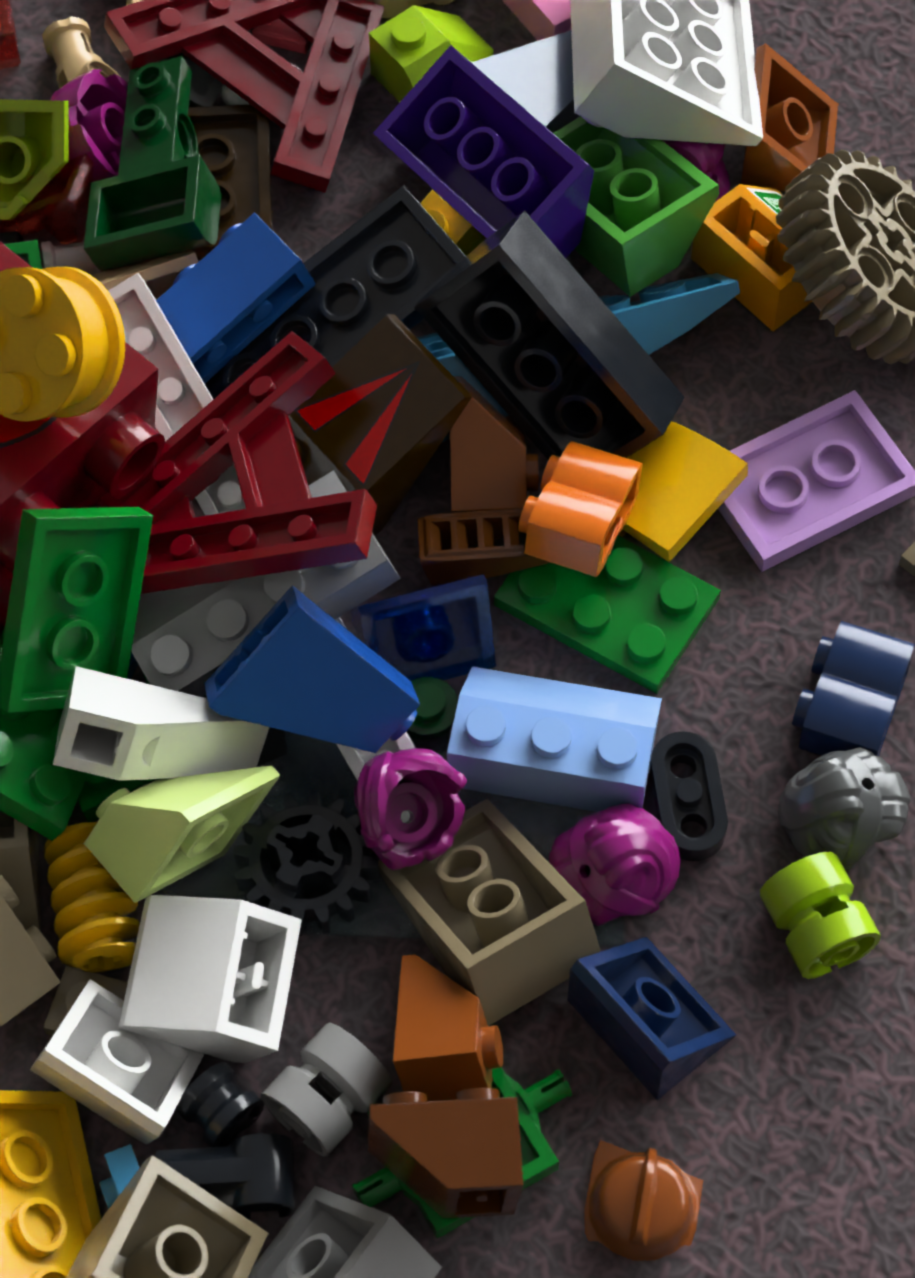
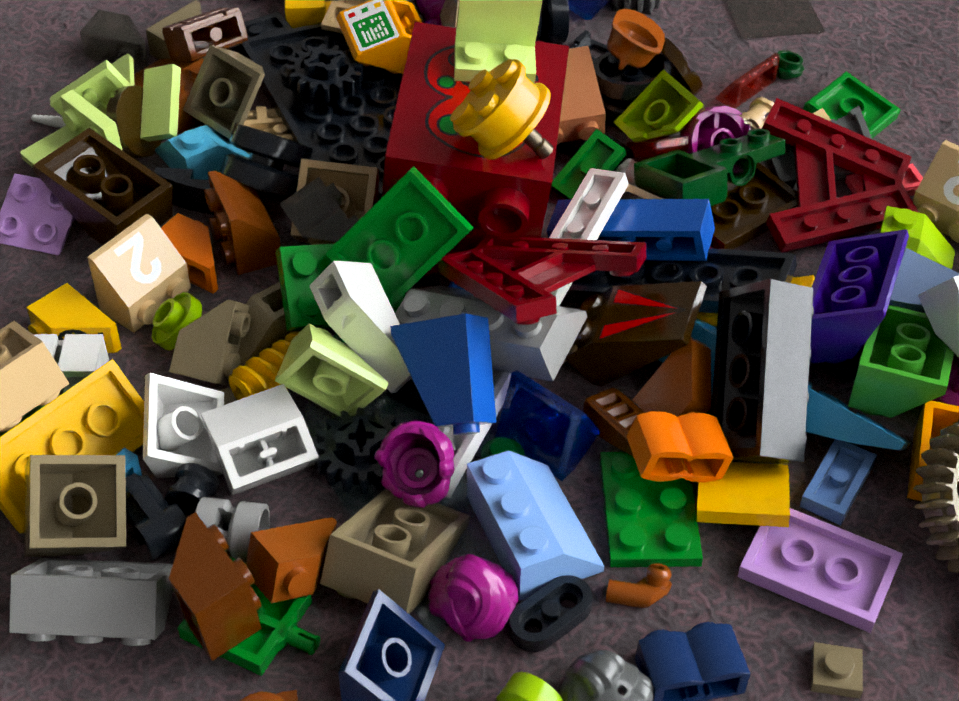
camera: 55 degrees right, 15 degrees down
(711, 382) = (838, 481): none -> medium blue plate
(719, 679) = (644, 592): none -> dark orange arm

